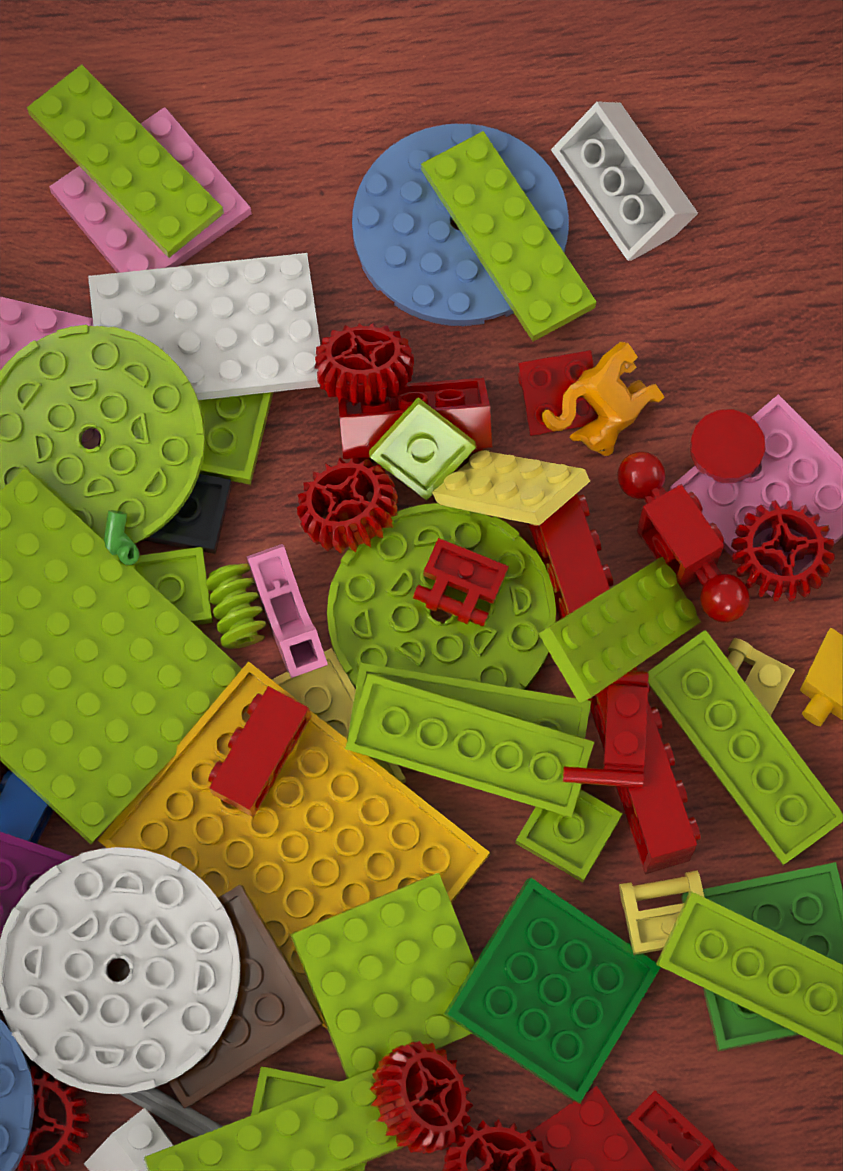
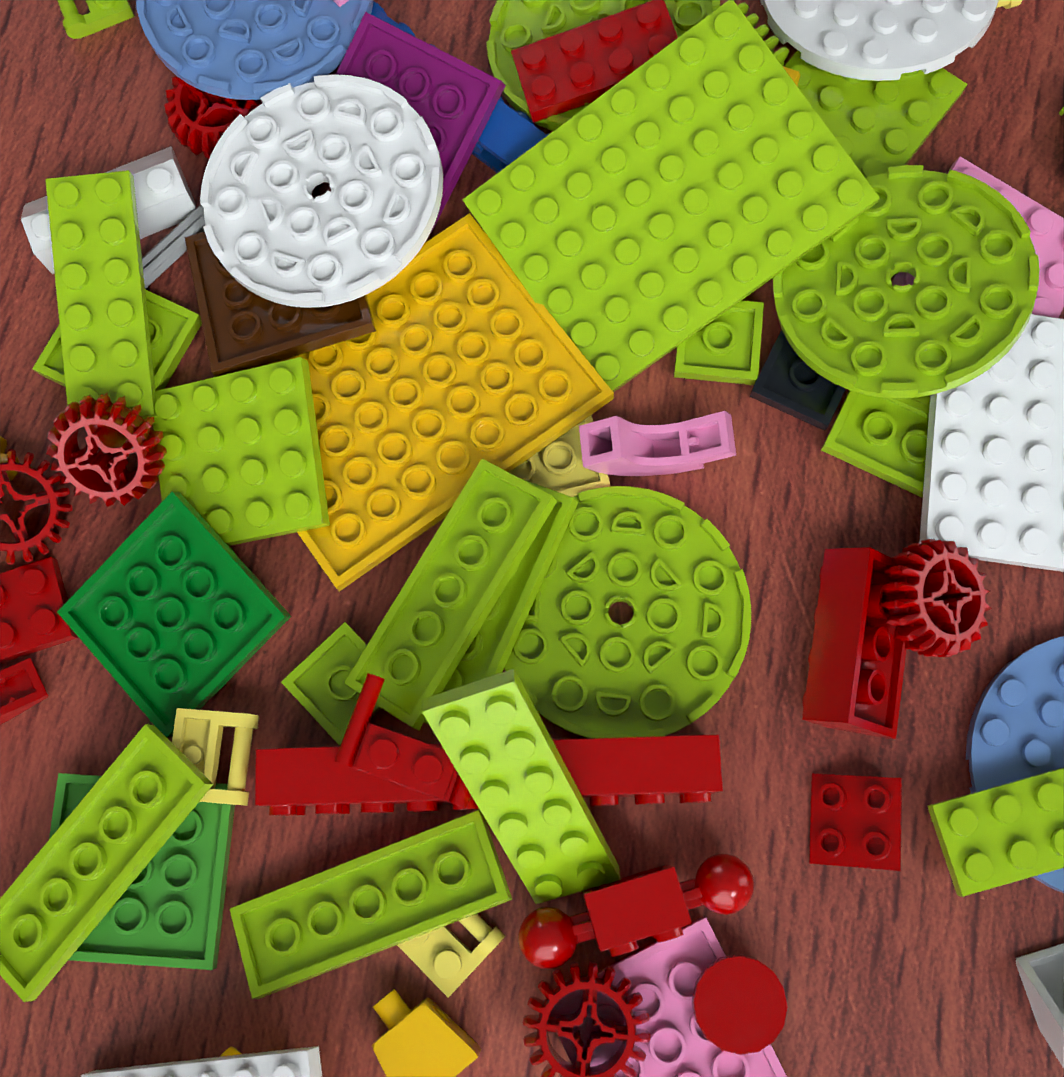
camera: 110 degrees right, 5 degrees up
(117, 540) = (779, 283): bright green arm -> none
(234, 606) = (681, 396): lime piece -> none
(259, 750) = (508, 375): red brick -> none
(350, 515) = (791, 550): red gear -> none
(422, 448) = (814, 634): lime plate -> none
(463, 571) = (654, 646): red plate -> none
(511, 487) = (736, 720): light yellow plate -> none
(610, 398) = (829, 878): light orange animal -> none

